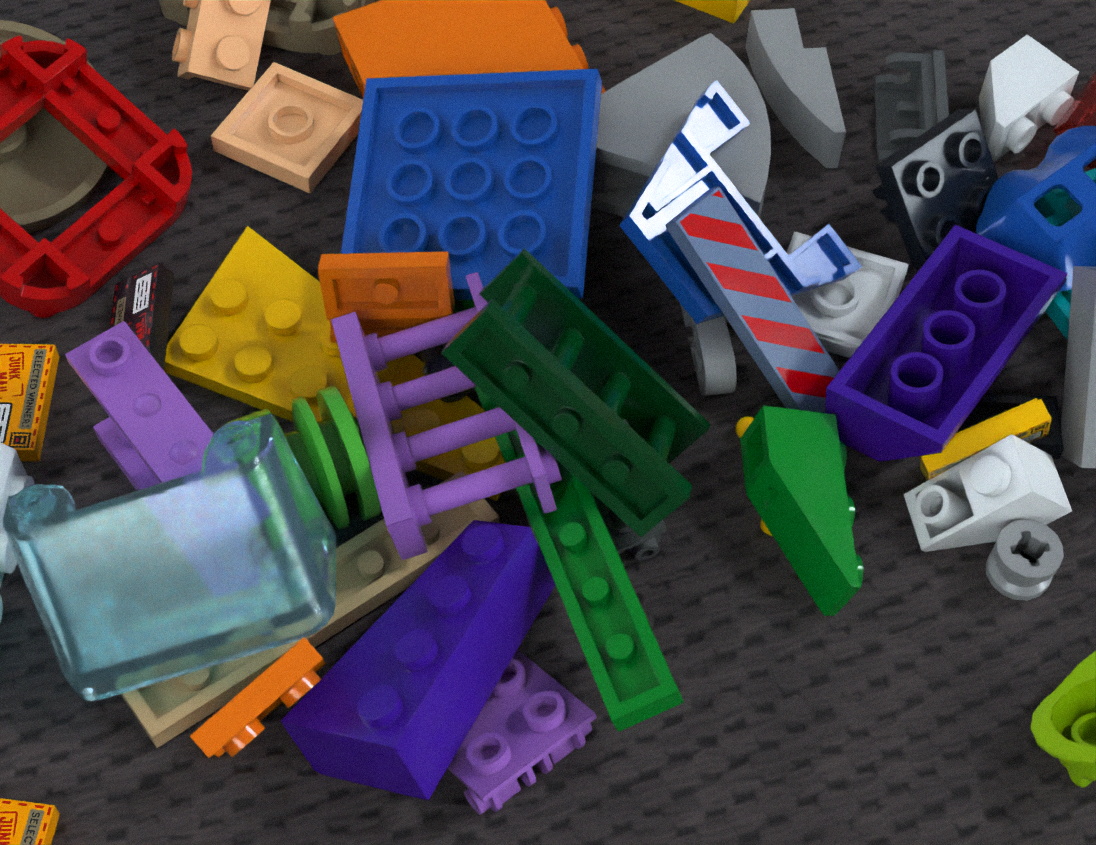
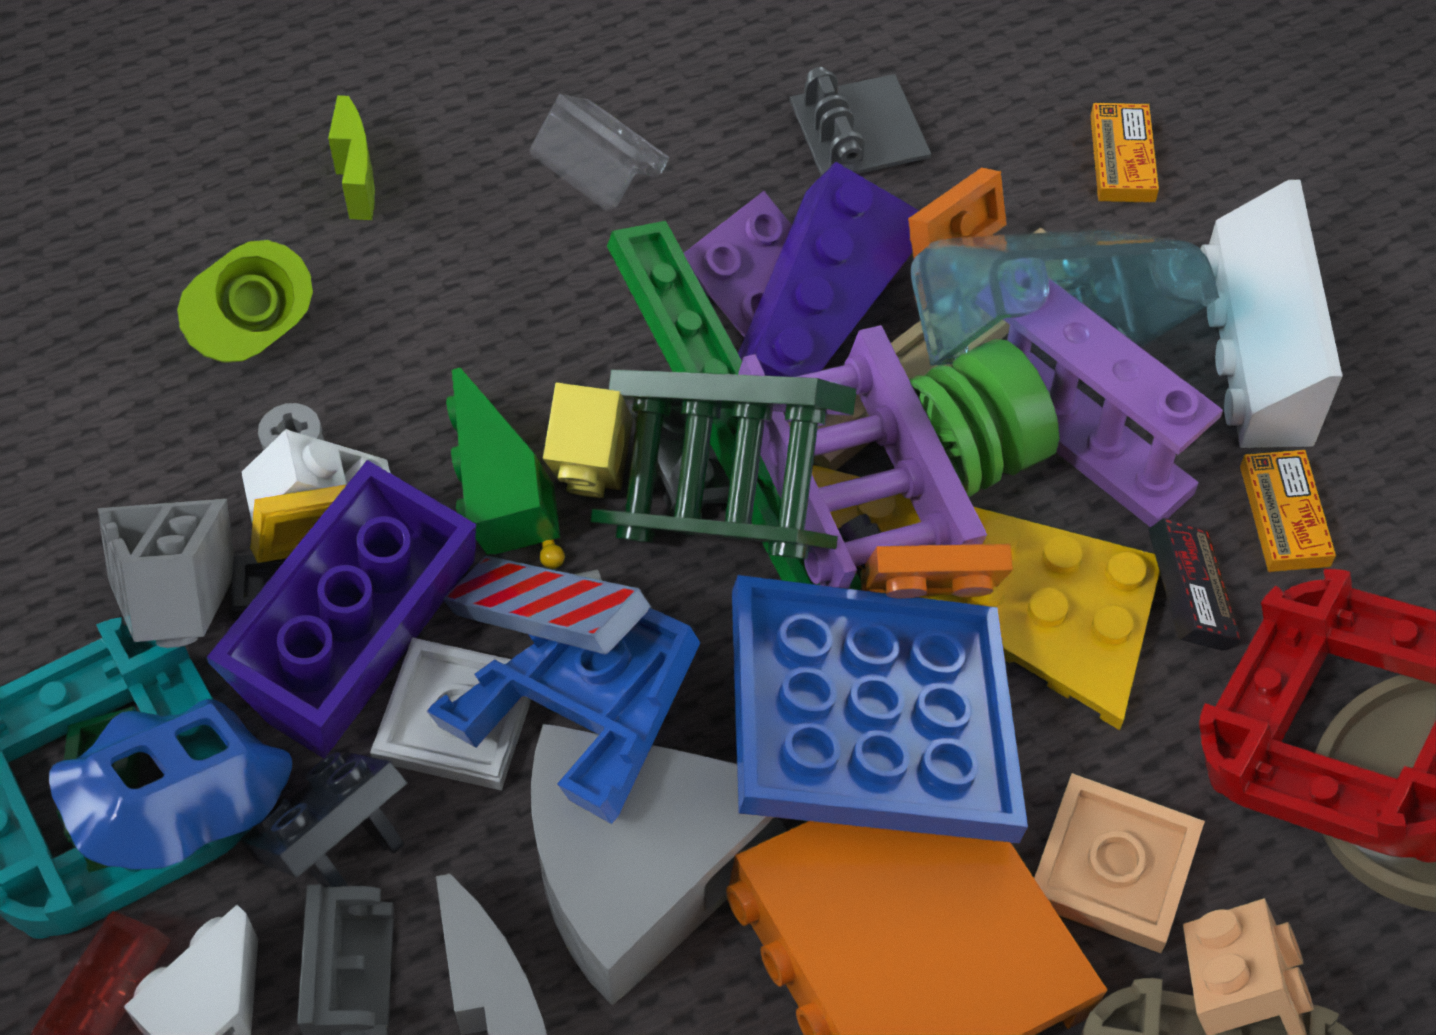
camera: 175 degrees right, 0 degrees up
(717, 464) = (588, 439): none -> light yellow brick

